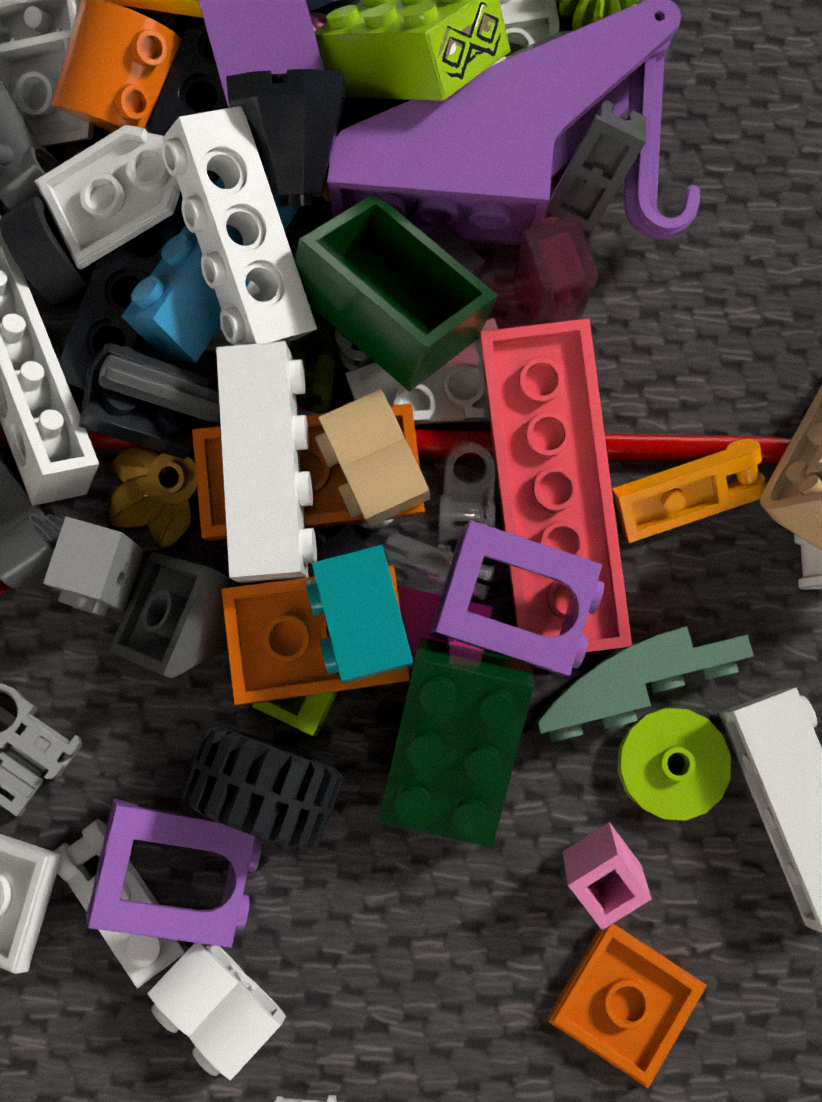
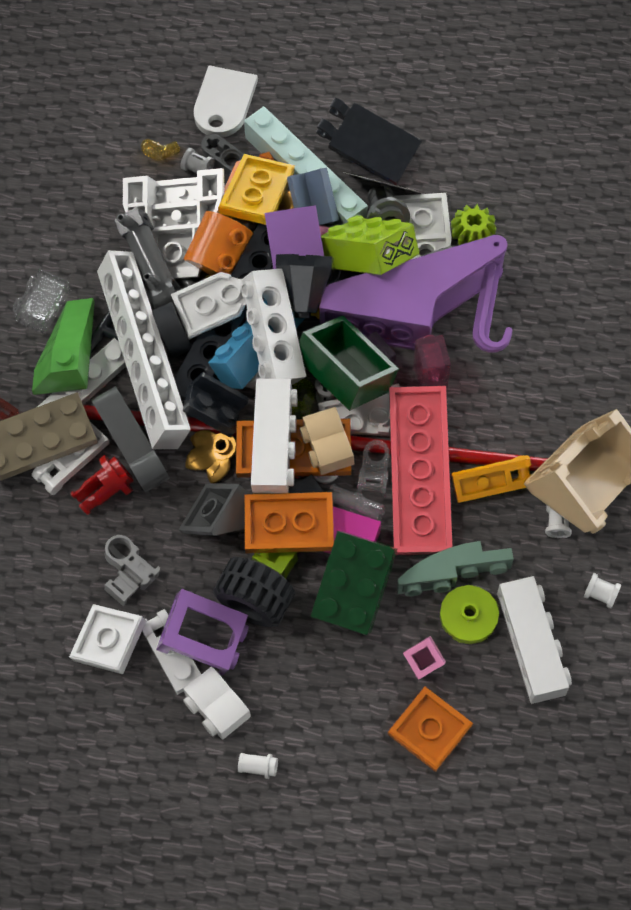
camera: 10 degrees right, 15 degrees down
(93, 567) = (180, 482): light grey brick -> none
(160, 388) = (226, 398): dark grey axle -> none
(360, 615) = (313, 509): teal brick -> none
(552, 654) = (404, 540): medium lavender panel -> none
(598, 166) = (458, 314): dark grey hinge -> none

